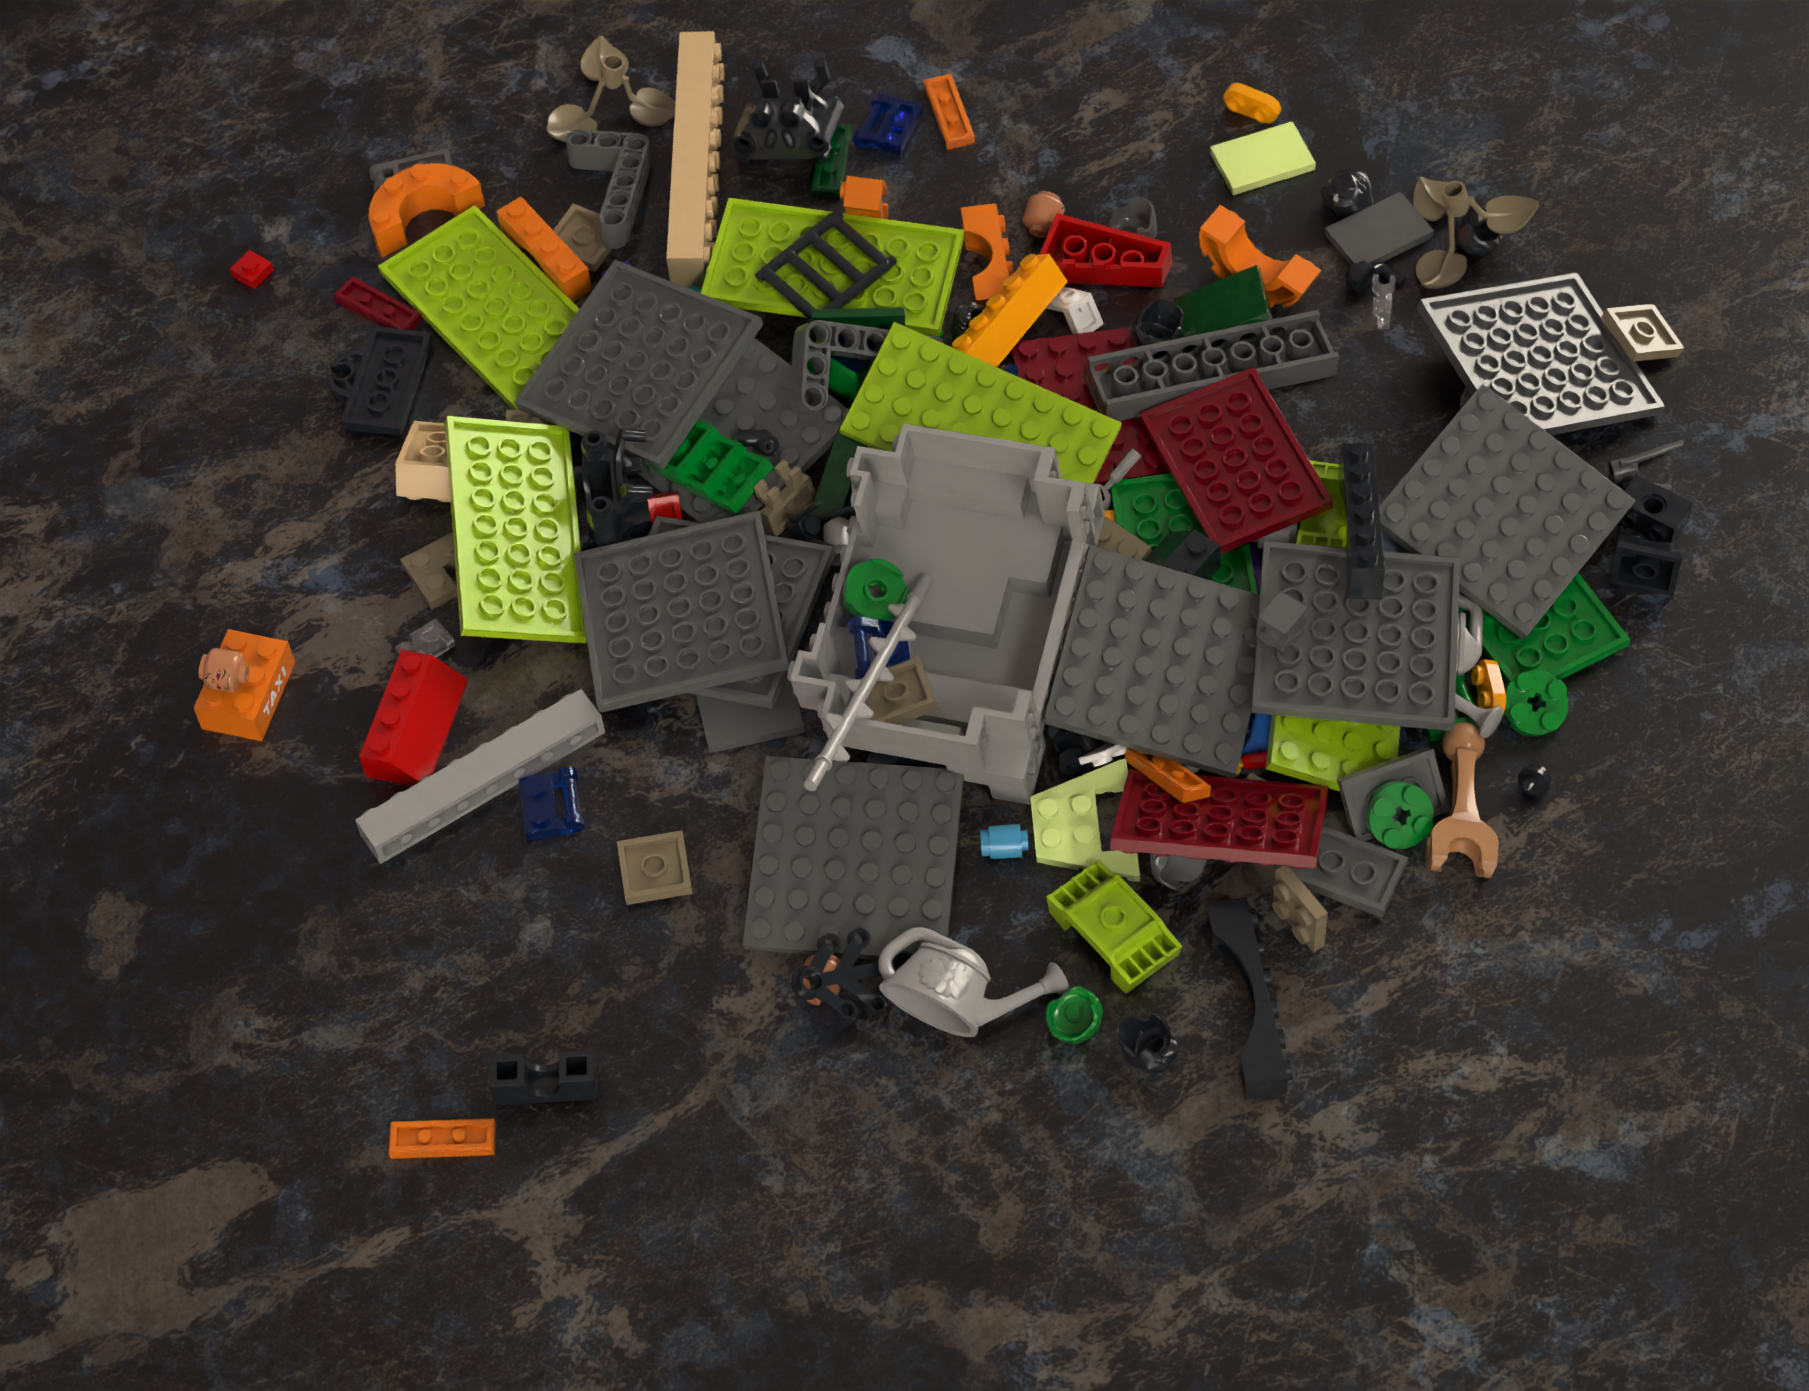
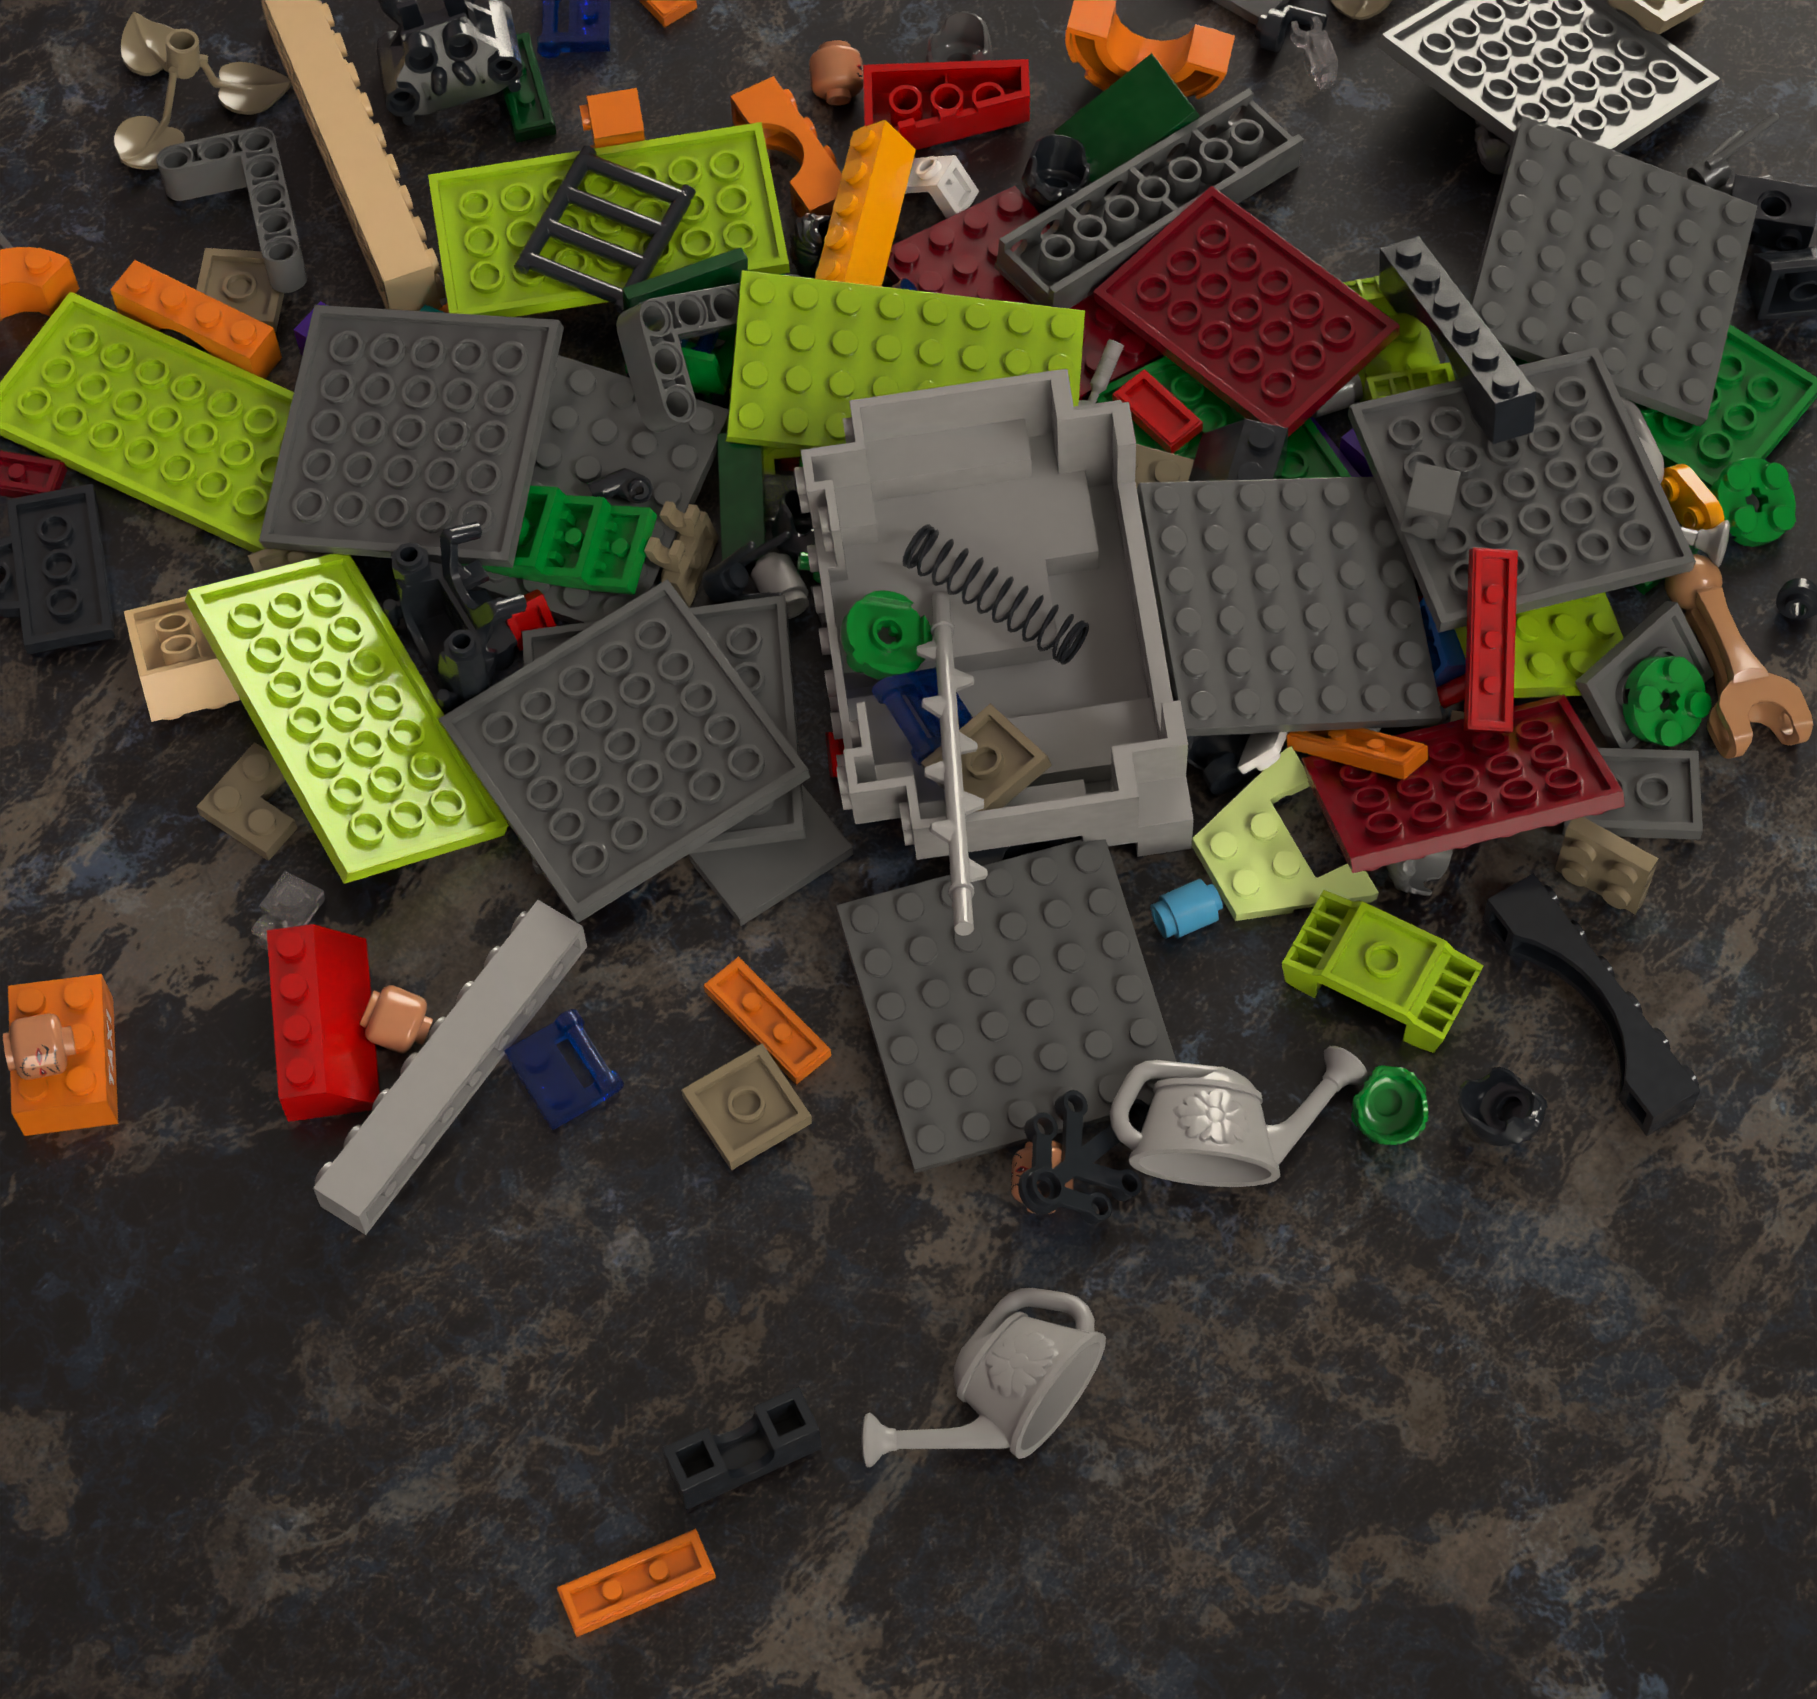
camera: 25 degrees left, 5 degrees up
(457, 733) = (396, 1019): none -> nougat head
(696, 818) = (767, 1020): none -> orange tile
(740, 1100) = (1014, 1374): none -> light grey piece
(932, 545) = (1065, 652): none -> black piece
(1146, 508) = (1159, 412): none -> red tile
(1281, 728) = (1490, 640): none -> red tile

